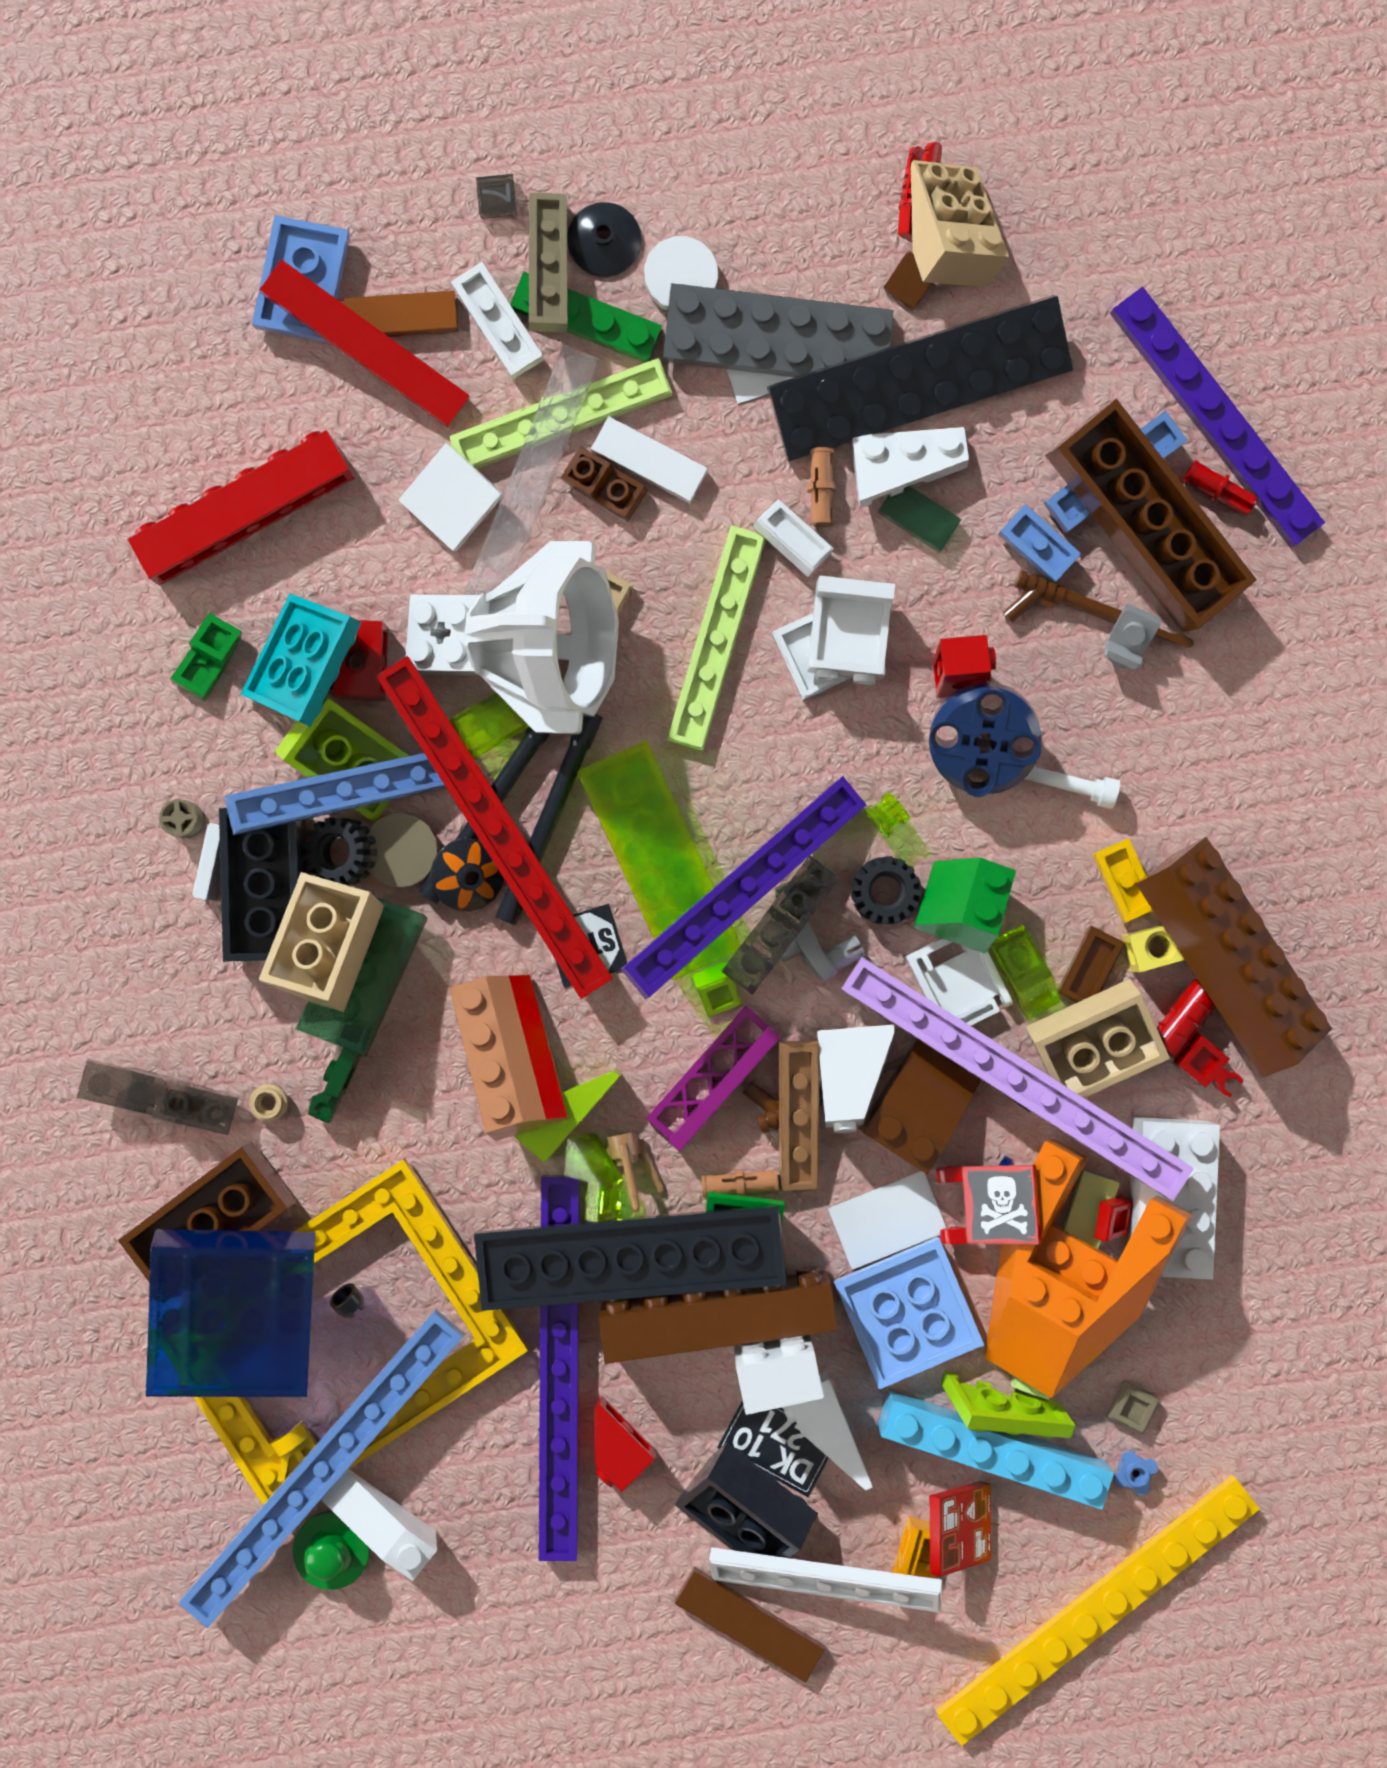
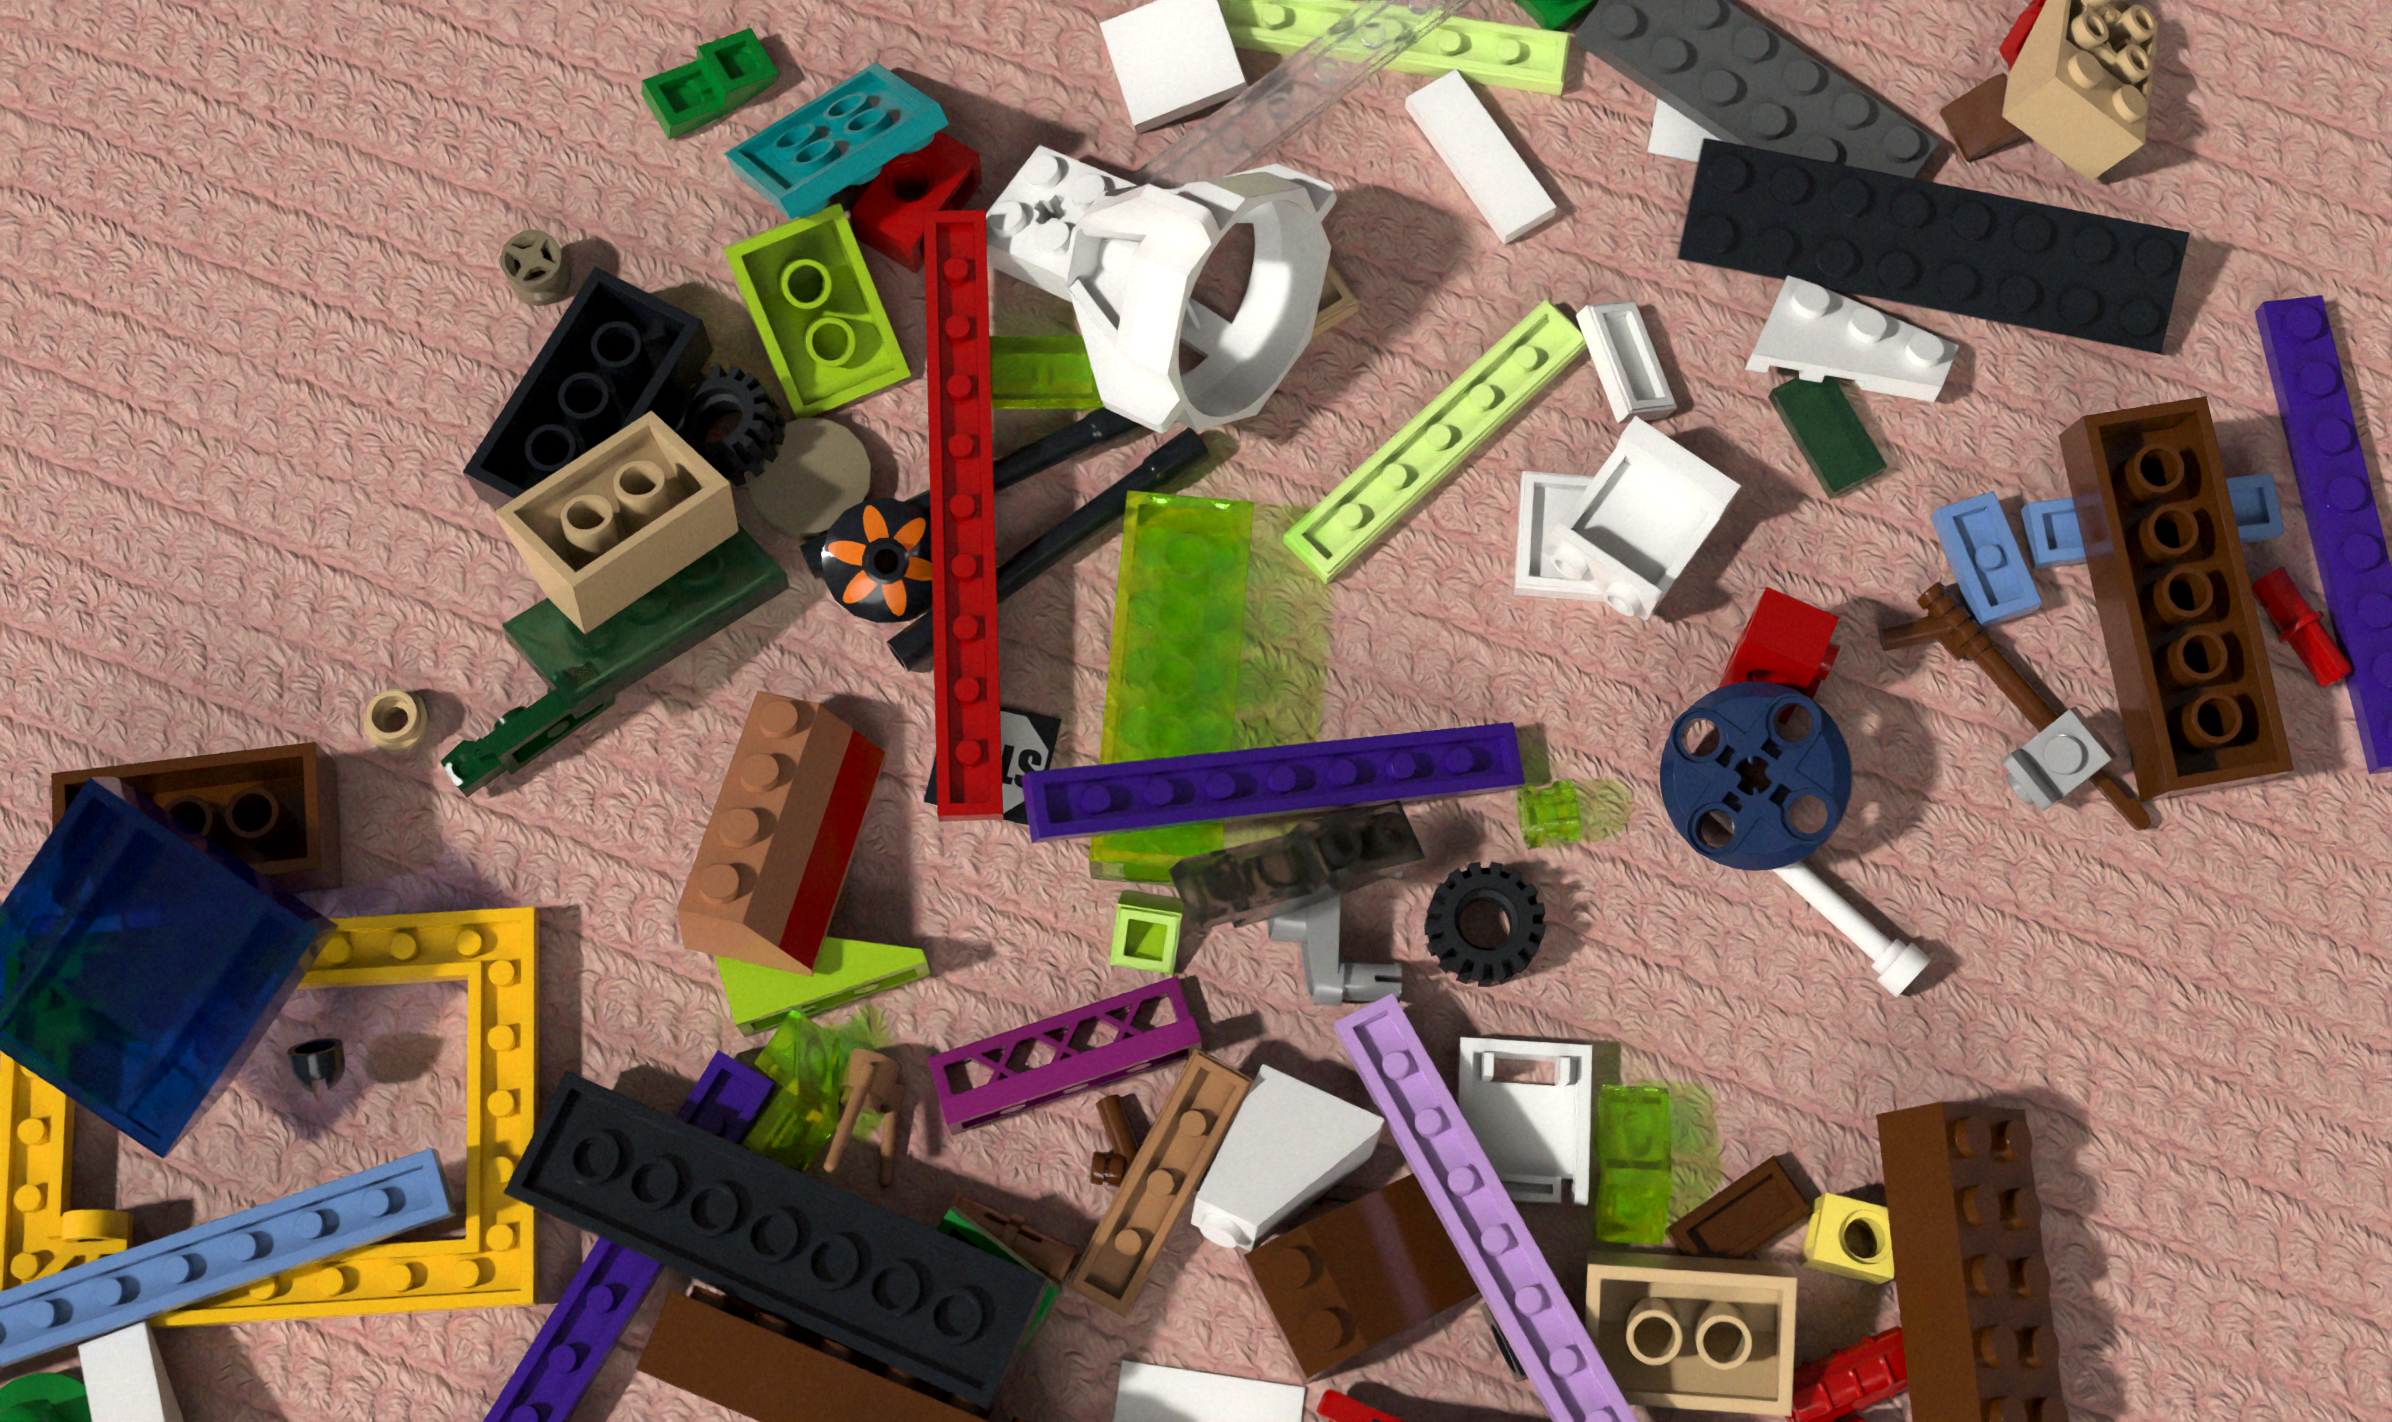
camera: 25 degrees right, 15 degrees down
(158, 1096) = (246, 616): clear smoke slope -> none
(208, 872) = (514, 359): white tile -> none
(331, 793) = (764, 334): medium blue tile -> none
(604, 484) = (1396, 154): reddish brown slope -> none
(821, 487) = (1706, 318): nougat pin -> none
(965, 901) = (1597, 1001): green slope -> none
(1120, 873) = (1860, 1086): yellow plate -> none

